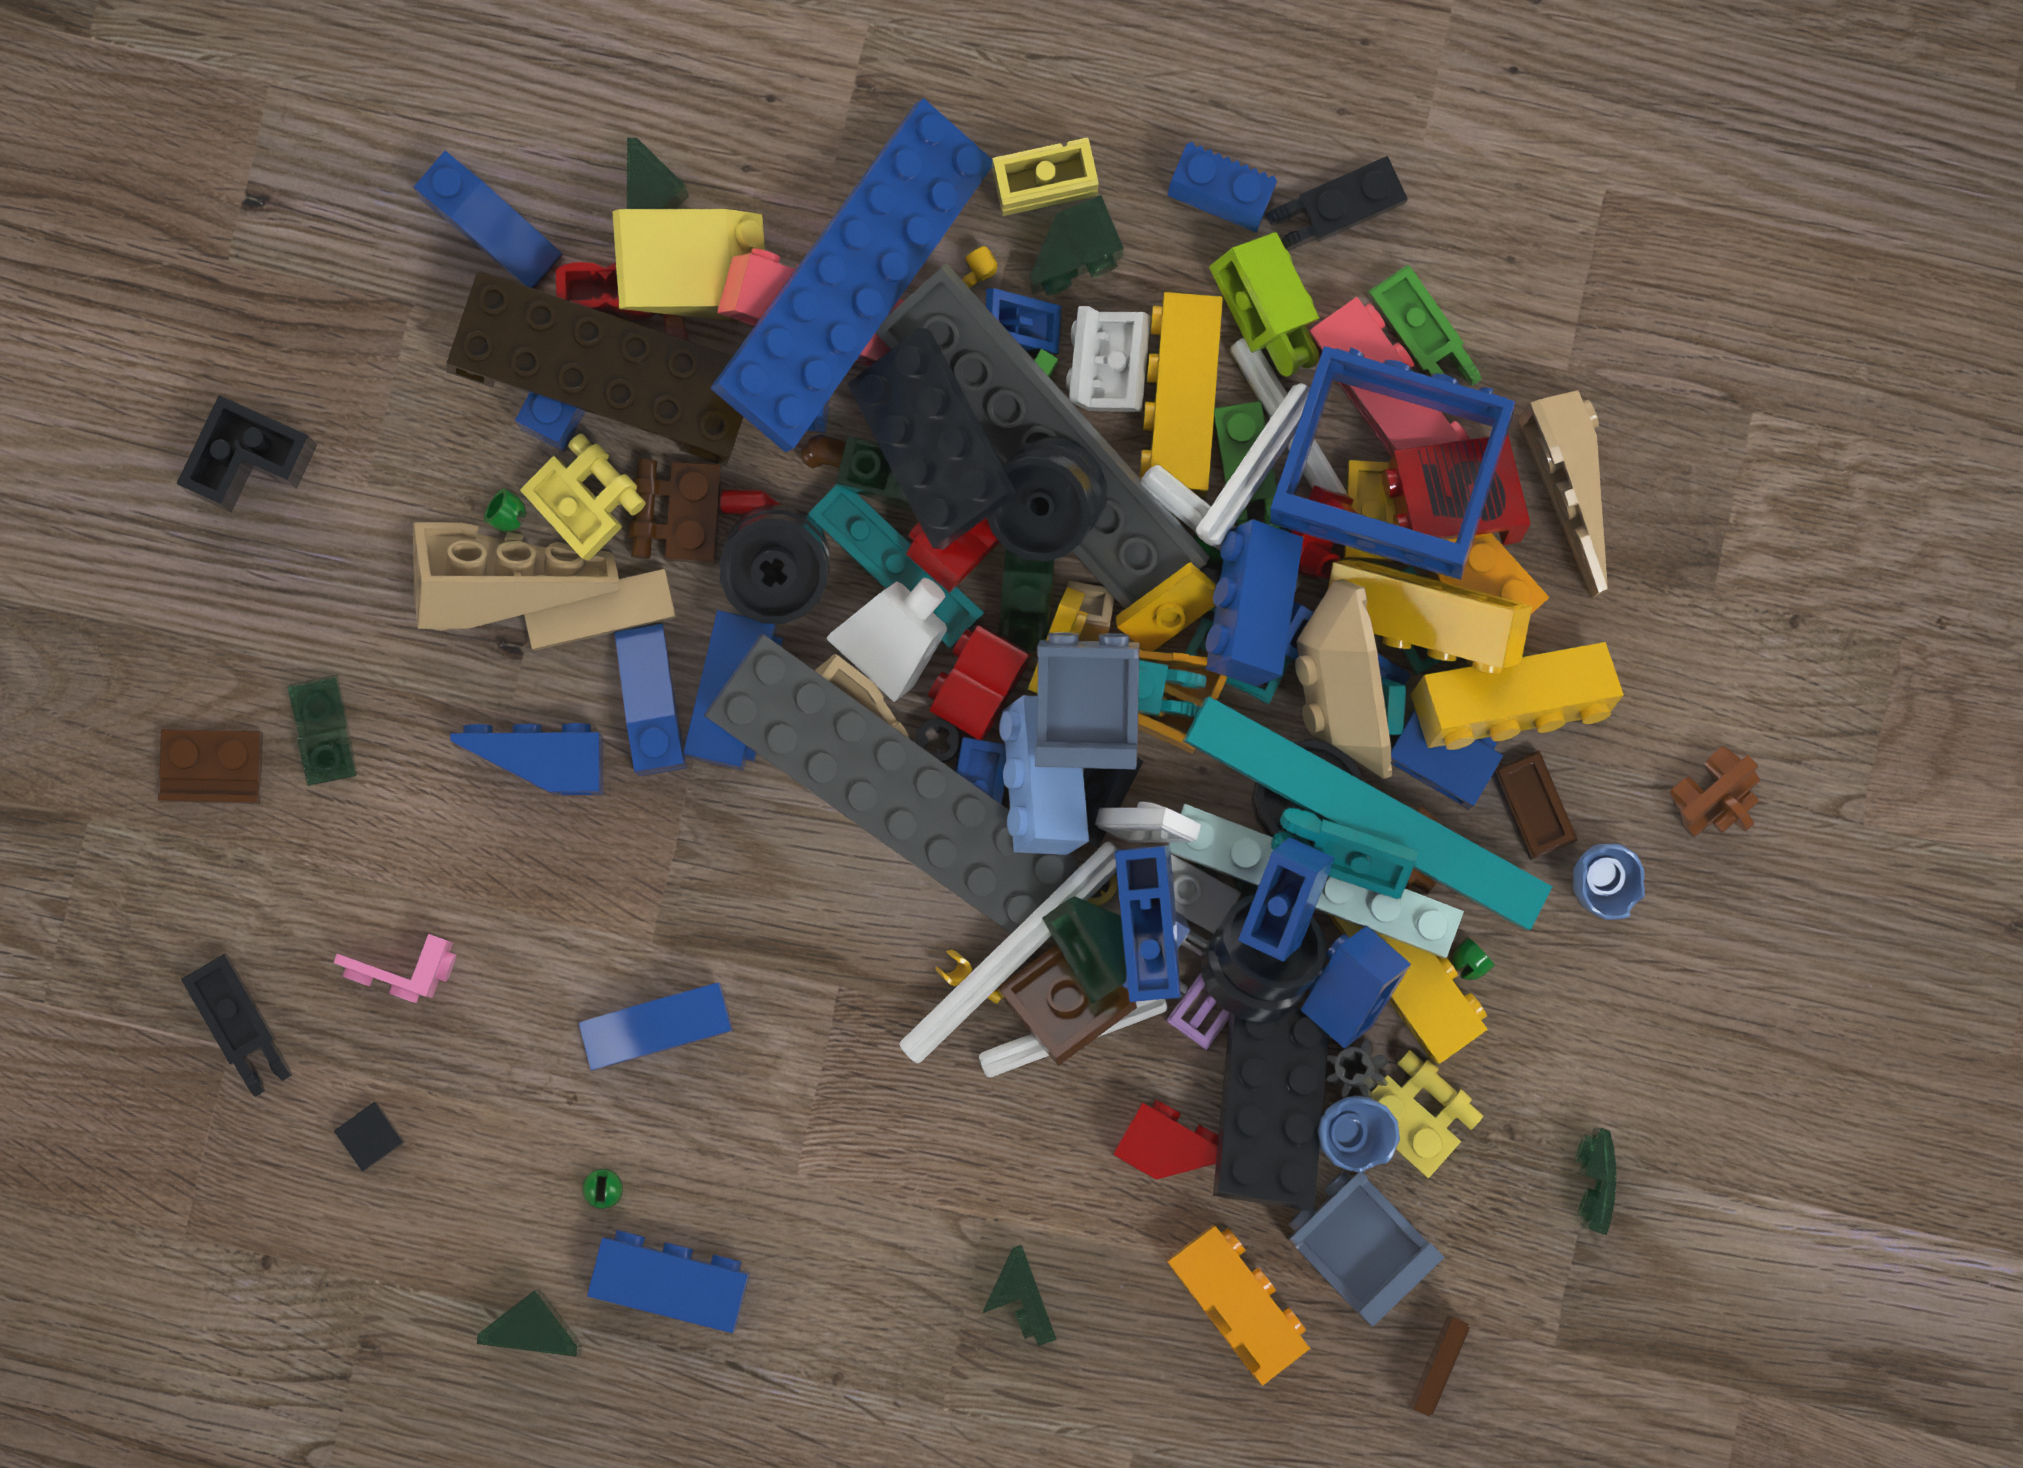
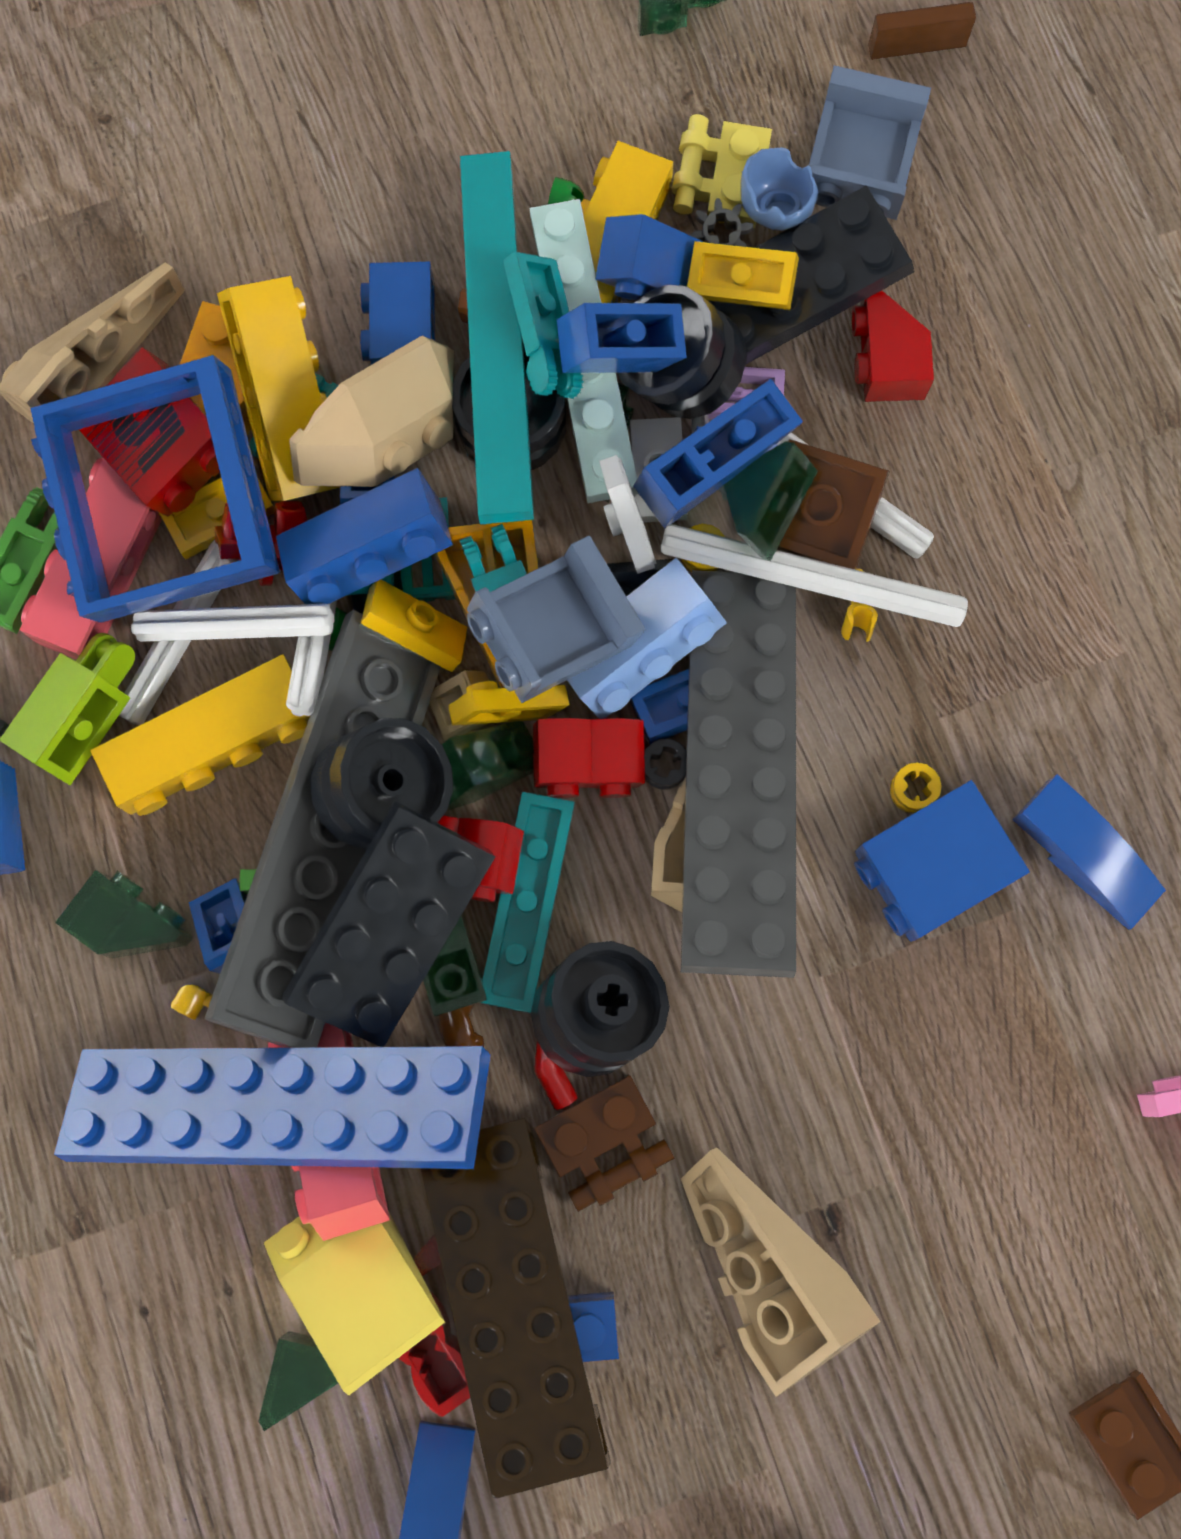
camera: 115 degrees left, 5 degrees down
(322, 730) = (1028, 1353): clear green slope -> none
(503, 511) = (708, 1312): green hinge -> none
(553, 761) = (921, 1113): blue slope -> none
(572, 507) = (664, 1246): light yellow plate -> none
(637, 603) = (713, 1122): tan tile -> none
(649, 701) = (799, 1051): blue slope -> none
(723, 901) = (939, 862): none -> blue panel
(728, 645) = (711, 999): blue brick -> none
(785, 938) = (899, 785): none -> yellow bush
(893, 636) = (596, 859): white torso -> none
(1017, 1283) = (1100, 400): clear green slope -> none
(1045, 176) = (67, 988): light yellow brick -> none
(1108, 360) = (213, 822): white bracket -> none
(1236, 432) = (221, 660): bright green hinge -> none
(1239, 1303) = (988, 203): light orange wedge -> none
(1294, 1047) = (743, 275): none -> yellow plate
(1535, 805) = (397, 226): reddish brown tile -> none
(1537, 693) = (336, 305): yellow brick -> none
(1608, 881) = (425, 127): medium blue hair -> none
(1725, 800) = (272, 81): dark orange hips -> none

